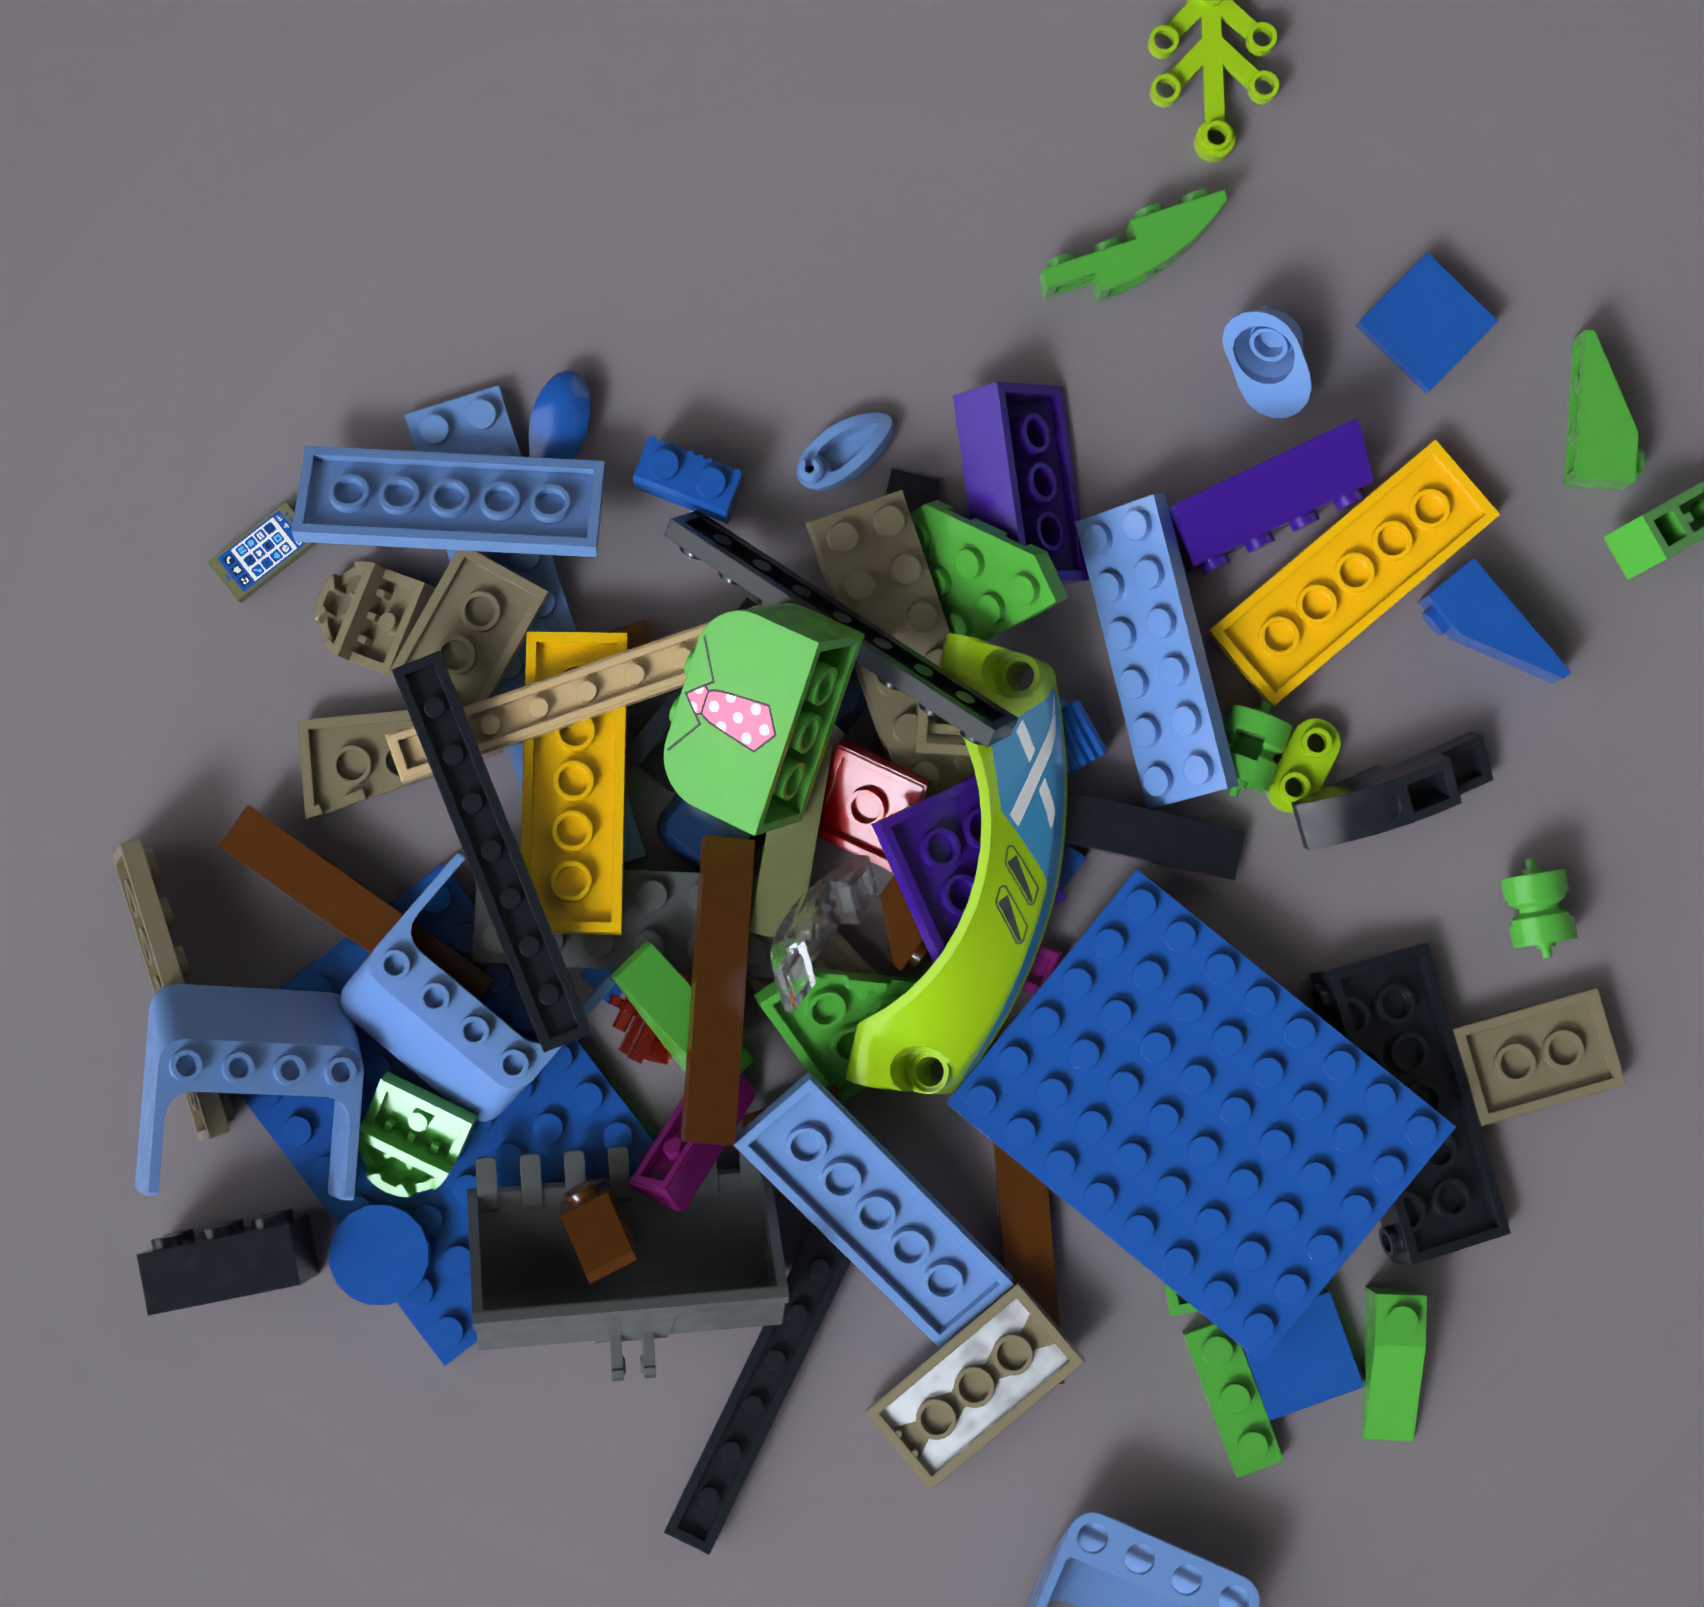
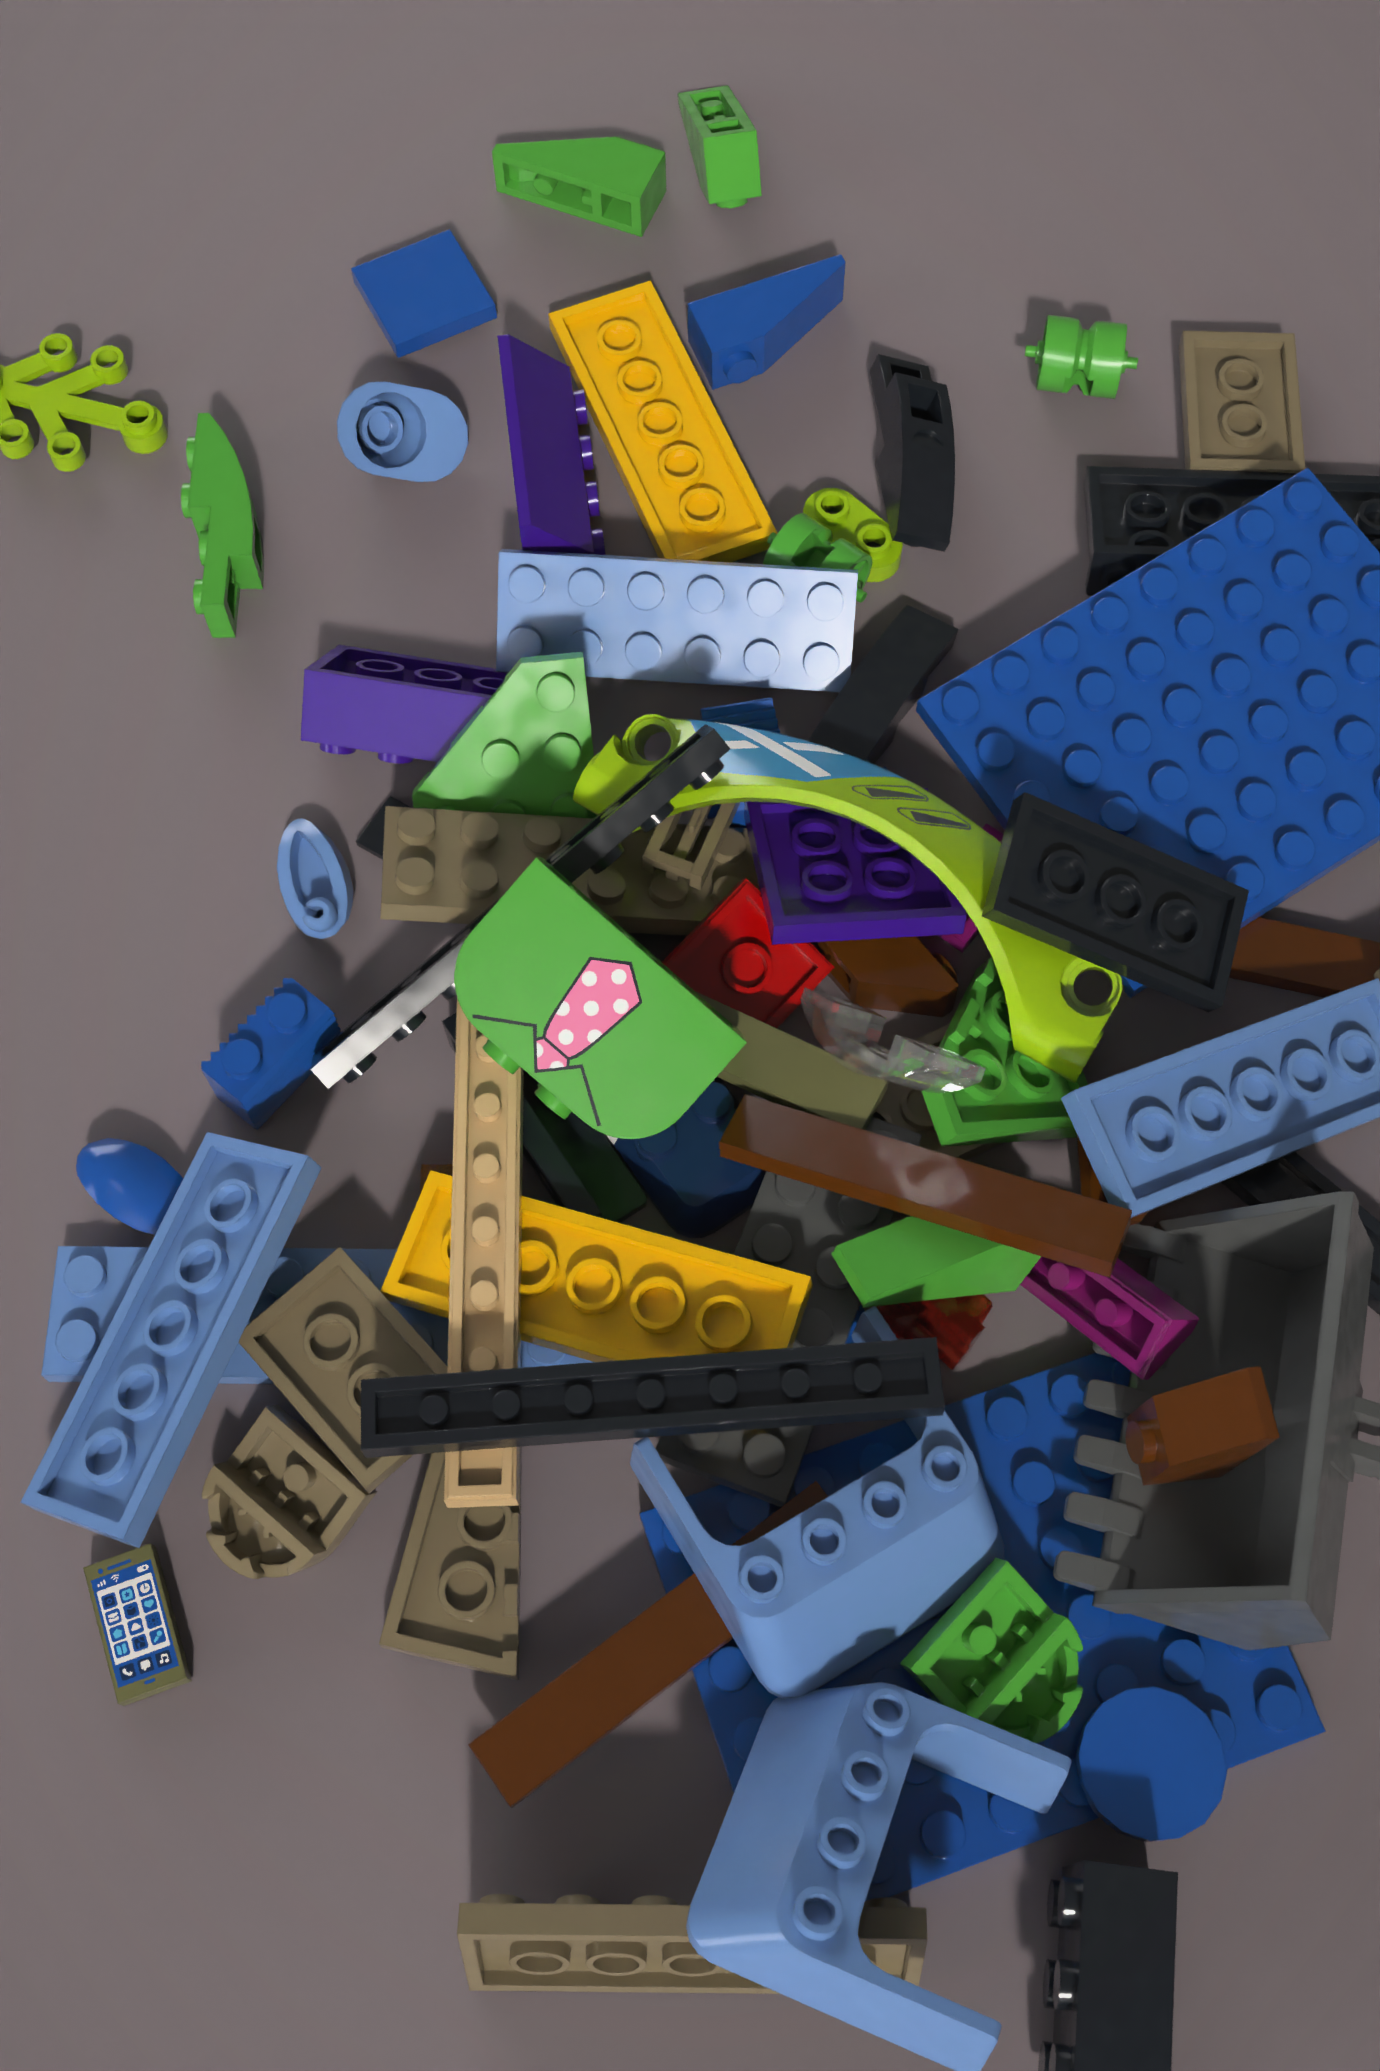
camera: 70 degrees left, 20 degrees down
(985, 1071) = (1116, 902): none -> black plate

